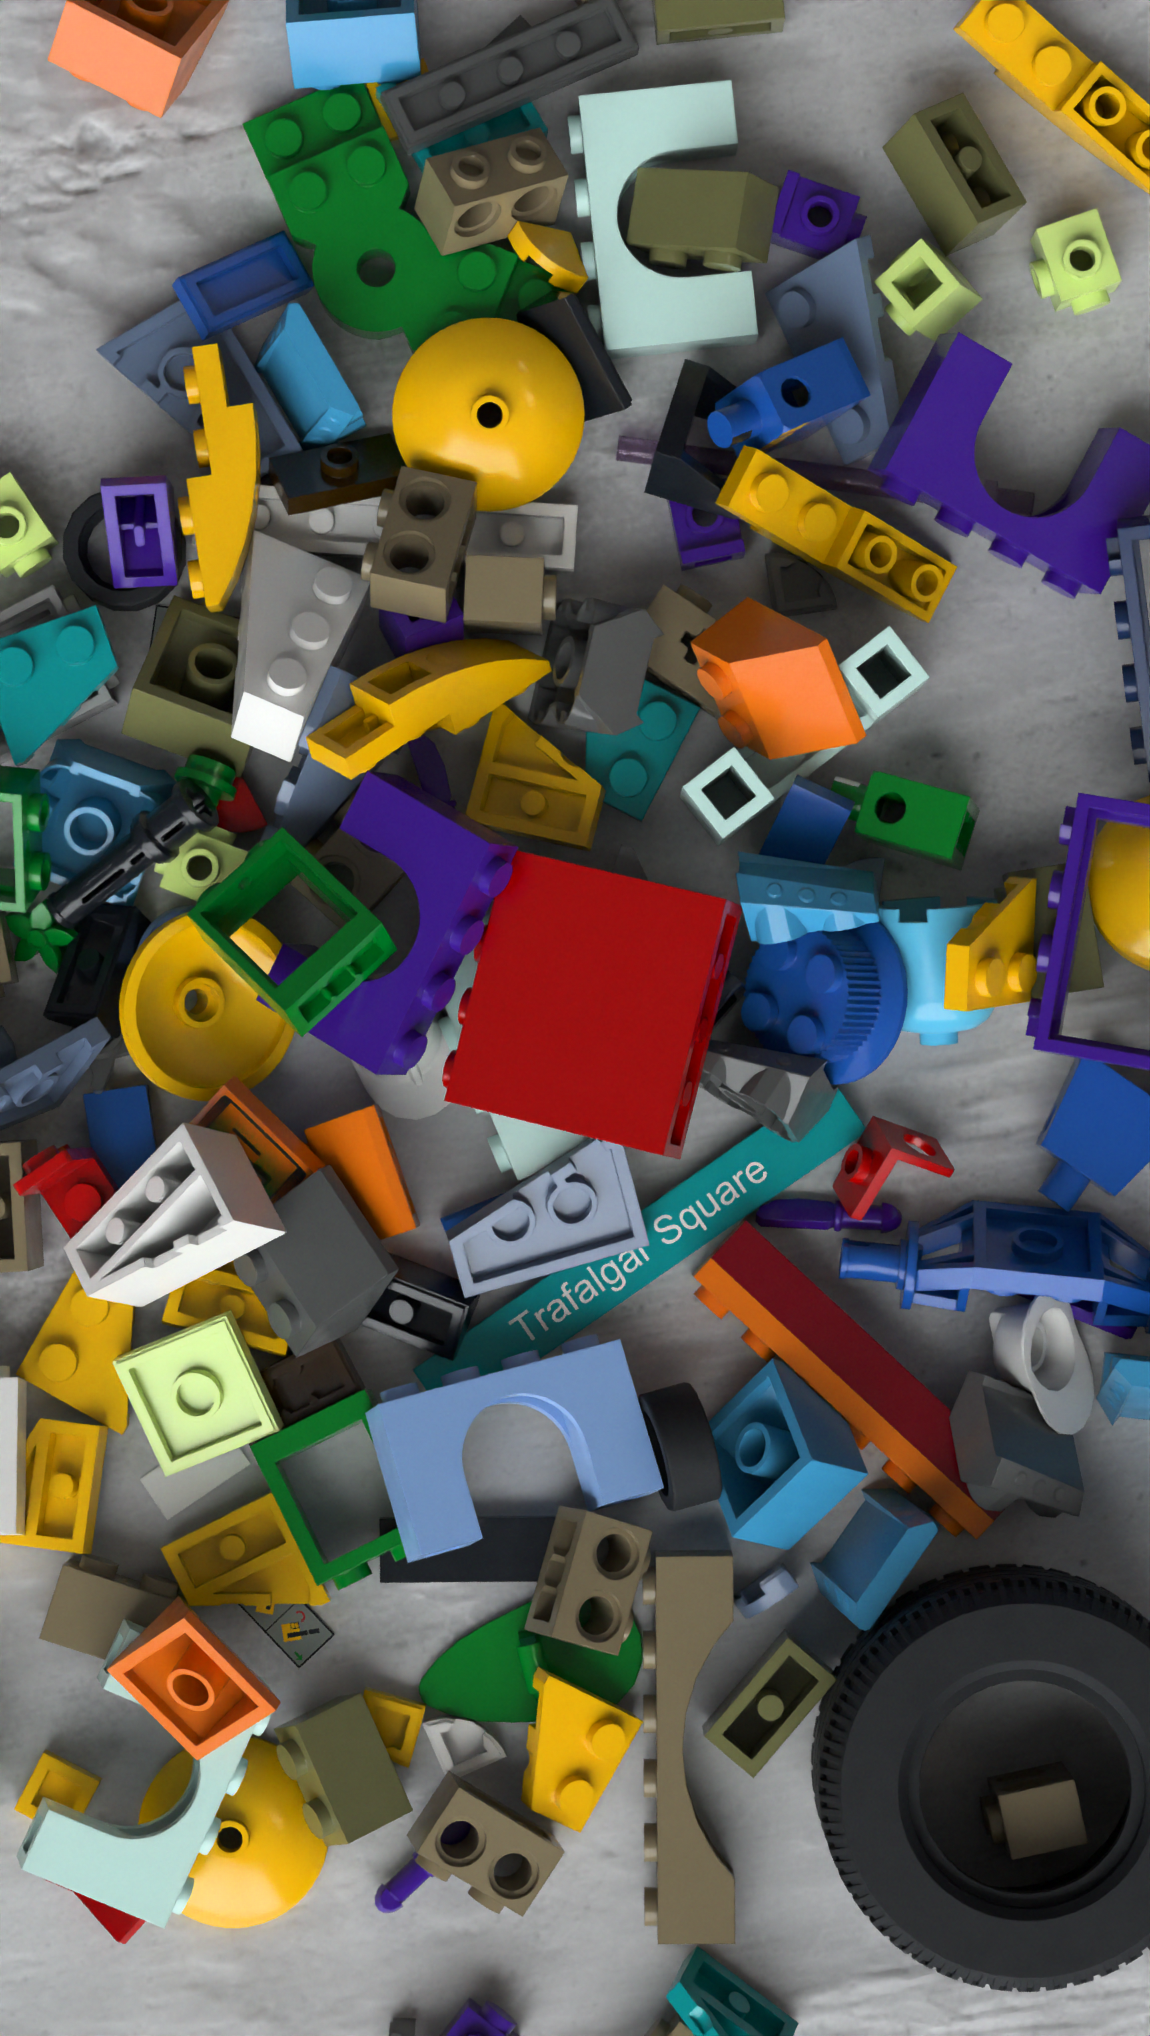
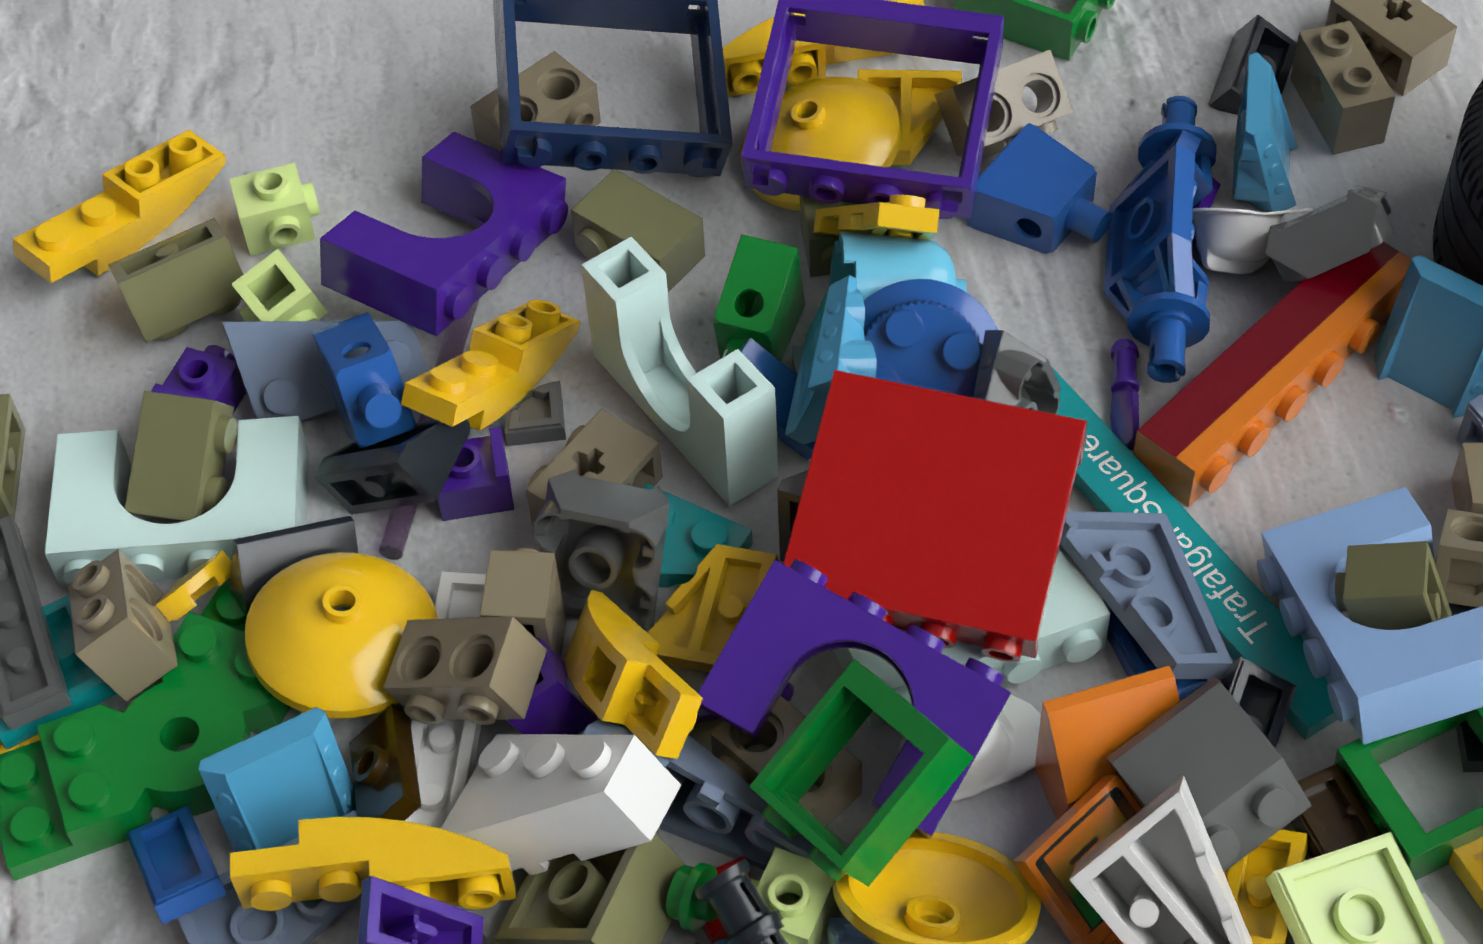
camera: 85 degrees left, 35 degrees down
(522, 1462) = (1391, 586): none -> olive brick
(682, 1446) = (1352, 456): black tyre -> none
(775, 684) = (626, 368): orange slope -> none
(782, 1458) = (1359, 411): dark azure slope -> none
(873, 1158) = (1080, 347): red bracket -> none
(1040, 679) = (627, 209): none -> olive brick

